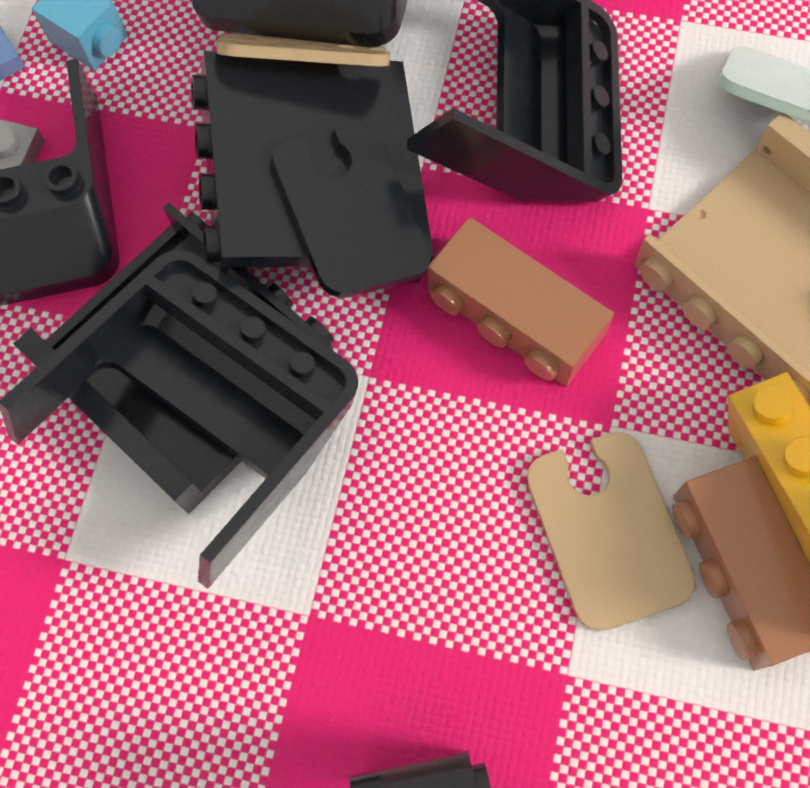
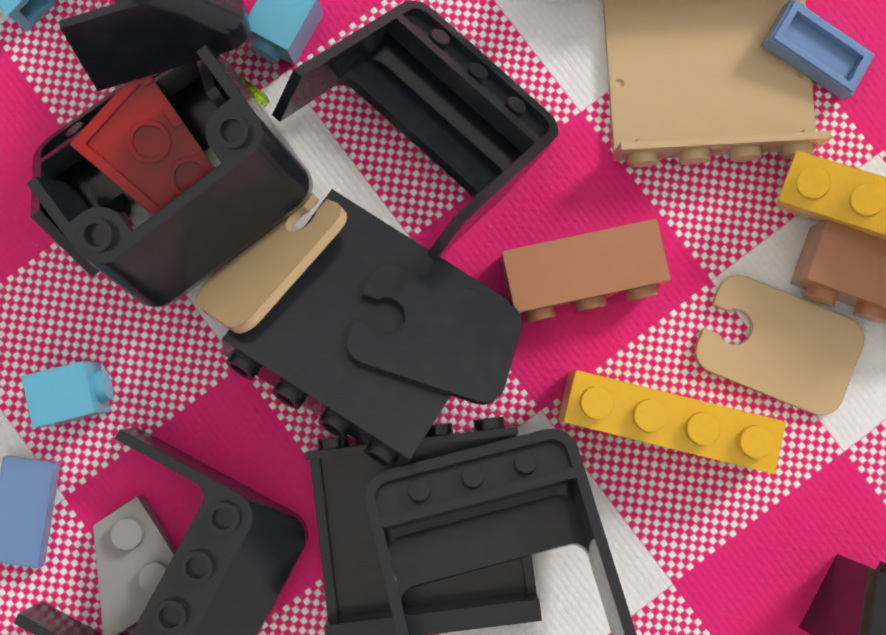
camera: 55 degrees left, 15 degrees up
(451, 477) = (672, 421): none -> yellow brick

